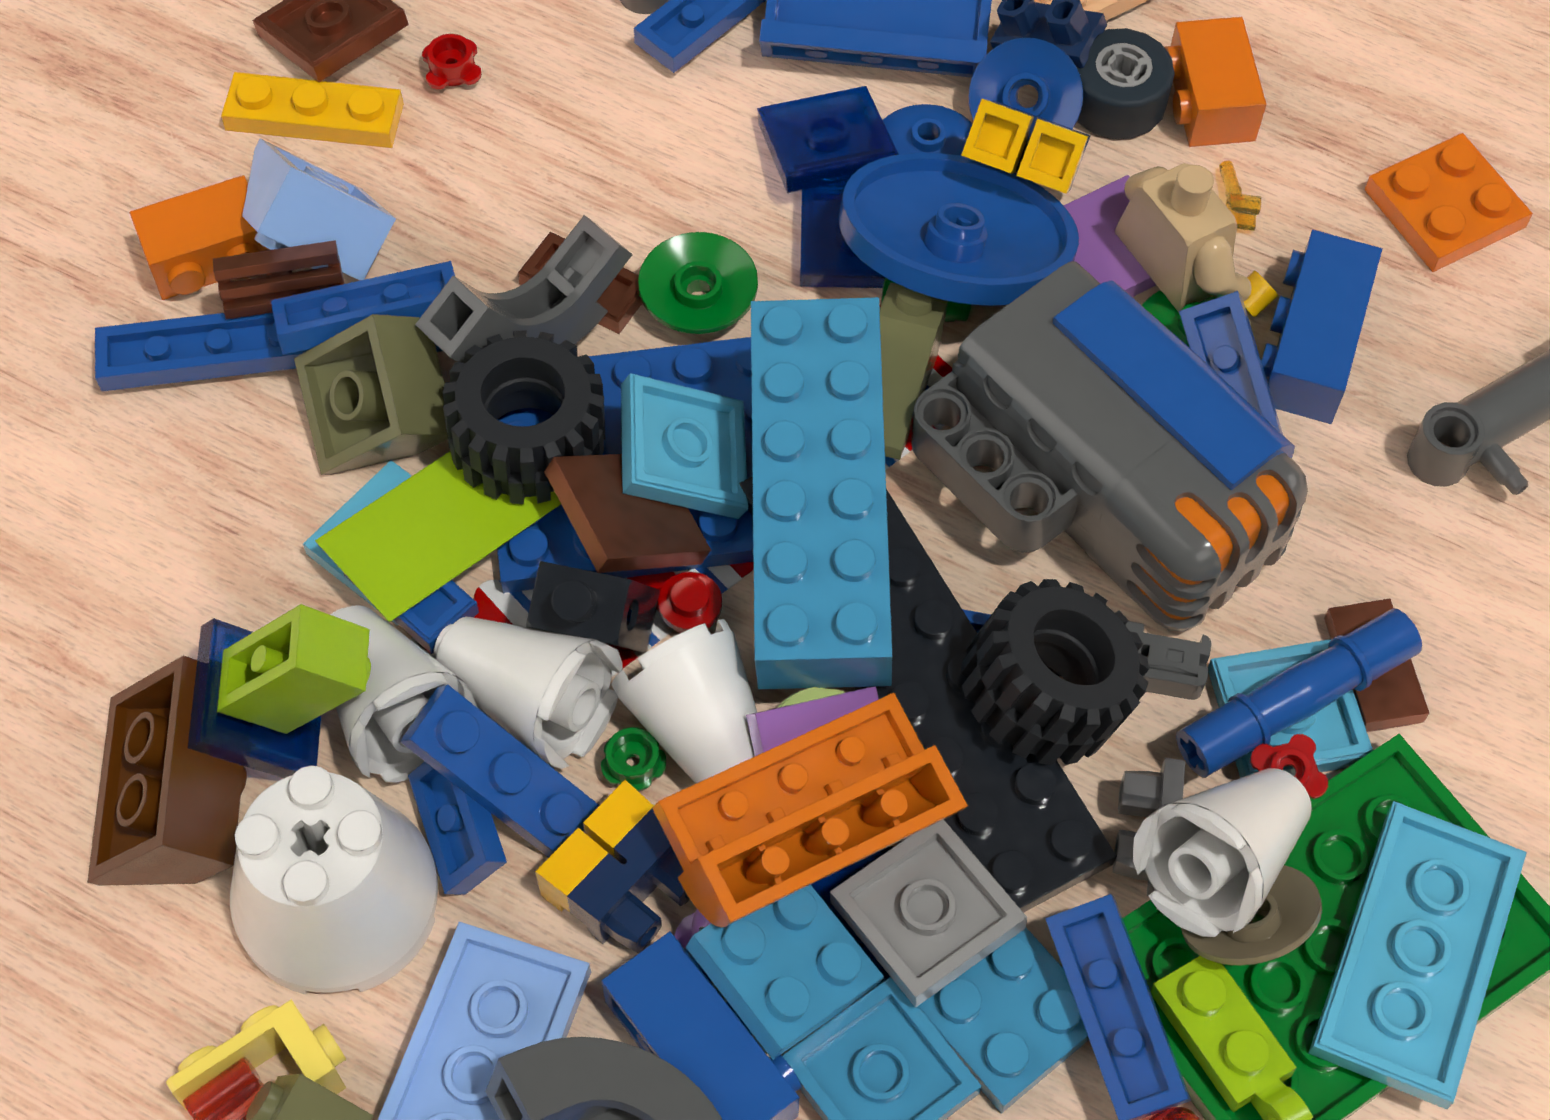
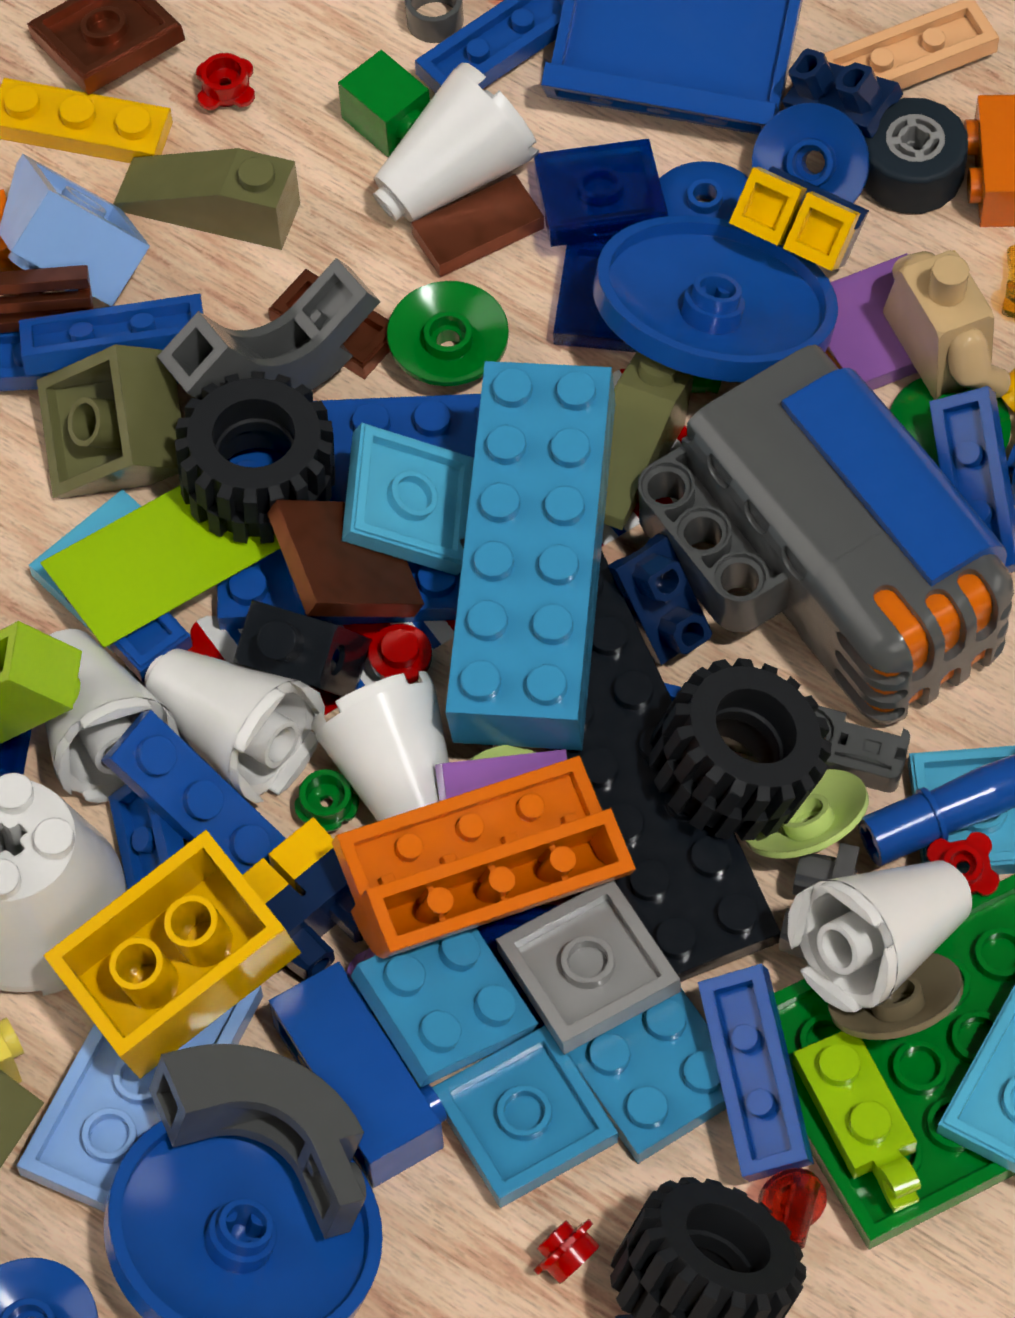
camera: 10 degrees right, 0 degrees up
(454, 165) = (215, 192): none -> olive slope
(495, 944) = (172, 954): none -> yellow brick
(609, 70) = (382, 101): none -> green brick
(683, 104) = (453, 148): none -> white cone
(712, 179) = (477, 225): none -> copper tile
(947, 526) = (661, 600): none -> dark blue hips
(1140, 740) = (822, 819): none -> yellowish green dish

